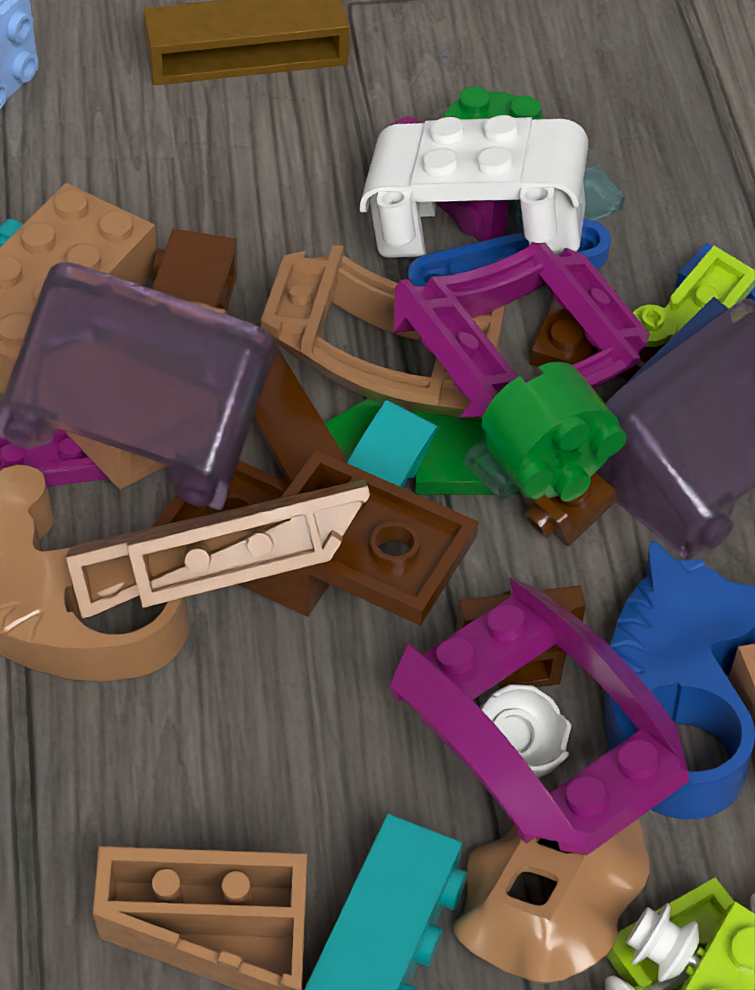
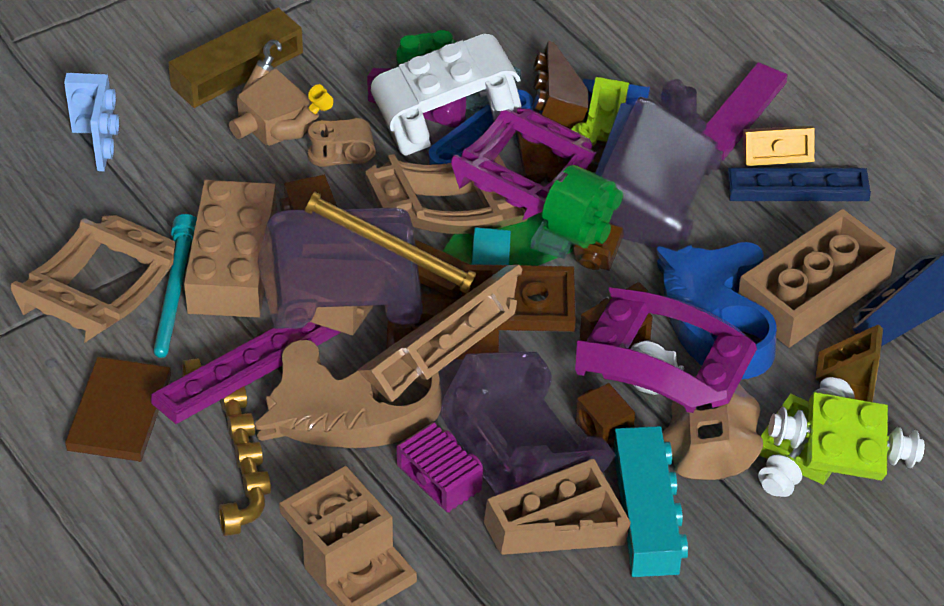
camera: 25 degrees left, 5 degrees down
(101, 752) = (440, 466): none -> magenta brick
(121, 272) = (390, 242): none -> pearl gold bar
(247, 118) = (274, 106): none -> medium nougat torso
(255, 736) = (502, 418): none -> clear purple windscreen
(305, 205) = (343, 140): none -> medium nougat piece
(398, 778) = (602, 412): none -> reddish brown brick
(657, 246) = (559, 89): none -> reddish brown slope

